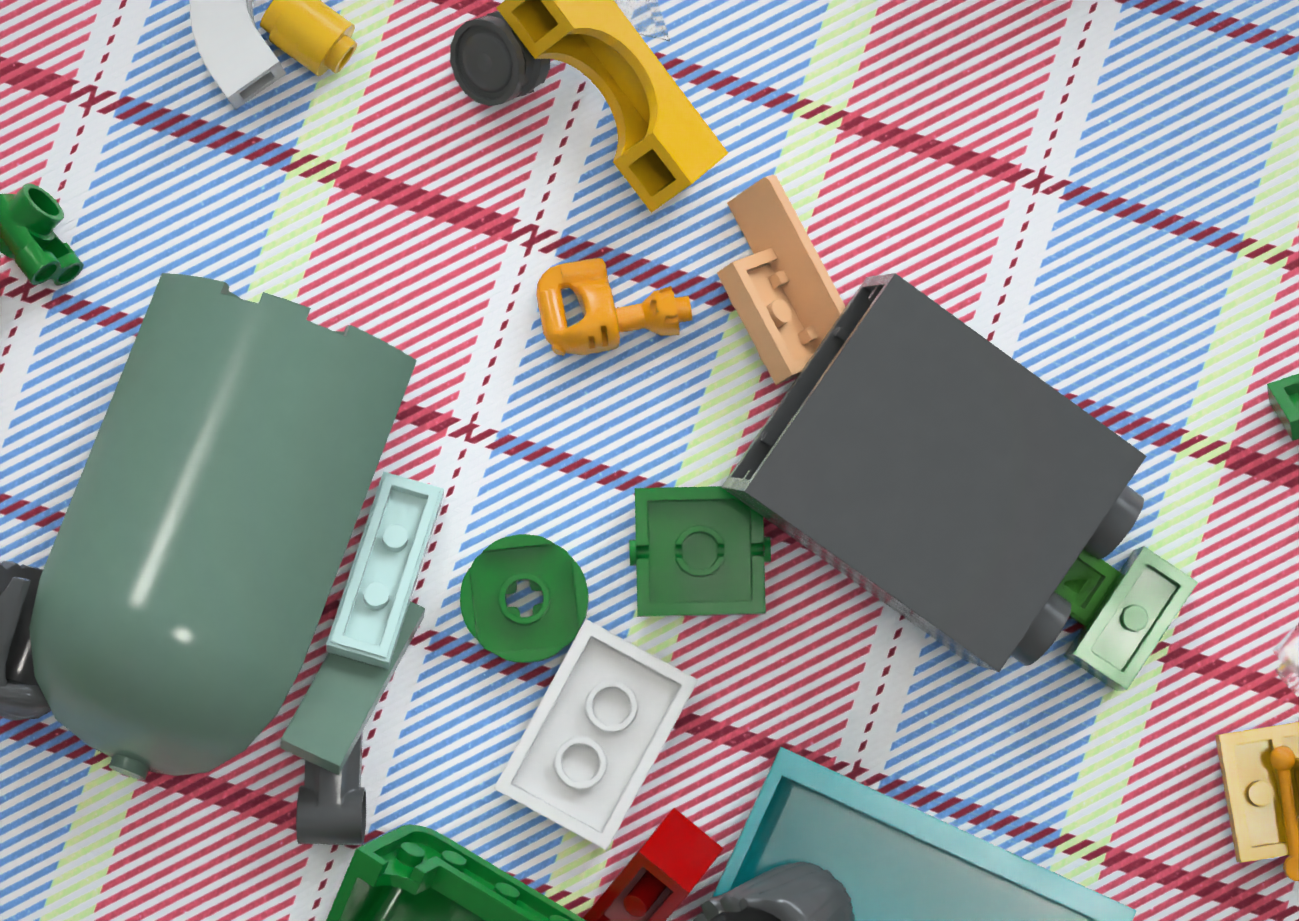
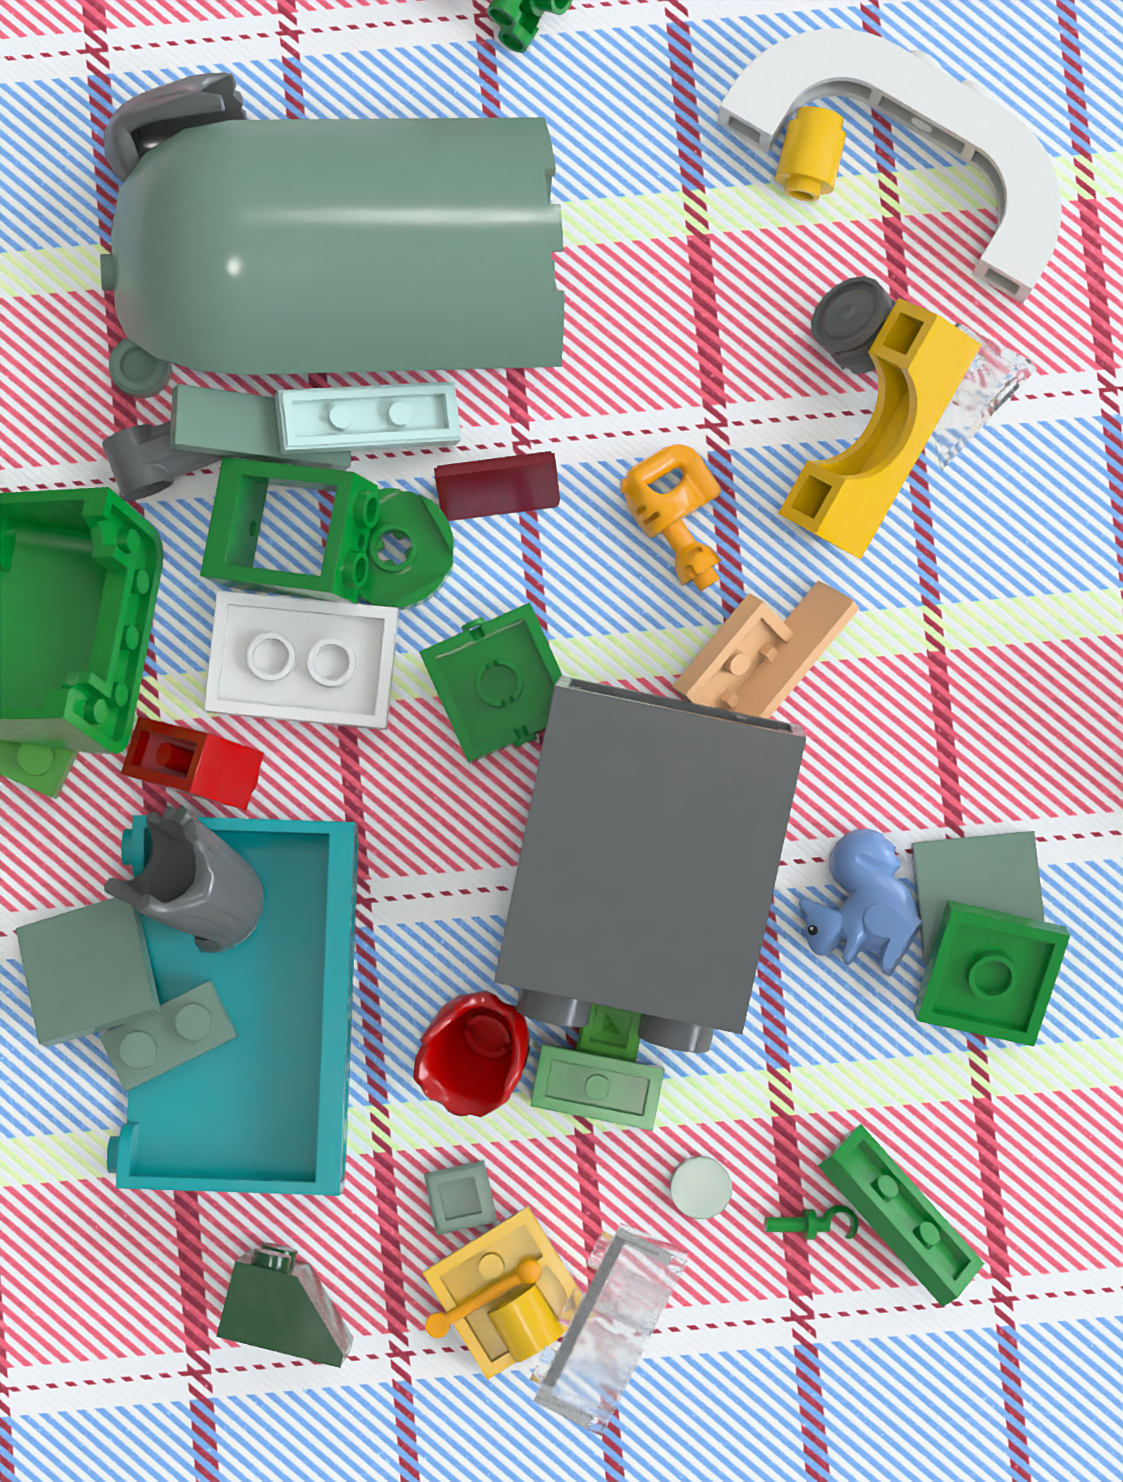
camera: 70 degrees right, 0 degrees up
(237, 780) = (138, 371): none -> sand green tile
(433, 740) = (238, 519): none -> green window
(506, 471) = (498, 486): none -> dark red slope
(1053, 725) = (472, 1054): none -> red hair
(1070, 279) = (877, 912): none -> medium blue animal
(1097, 180) = (979, 871): none -> sand green tile
(1177, 199) = (991, 973): none -> green plate
(1181, 797) = (460, 1197): none -> sand green tile
(1265, 562) = (701, 1187): none -> tile

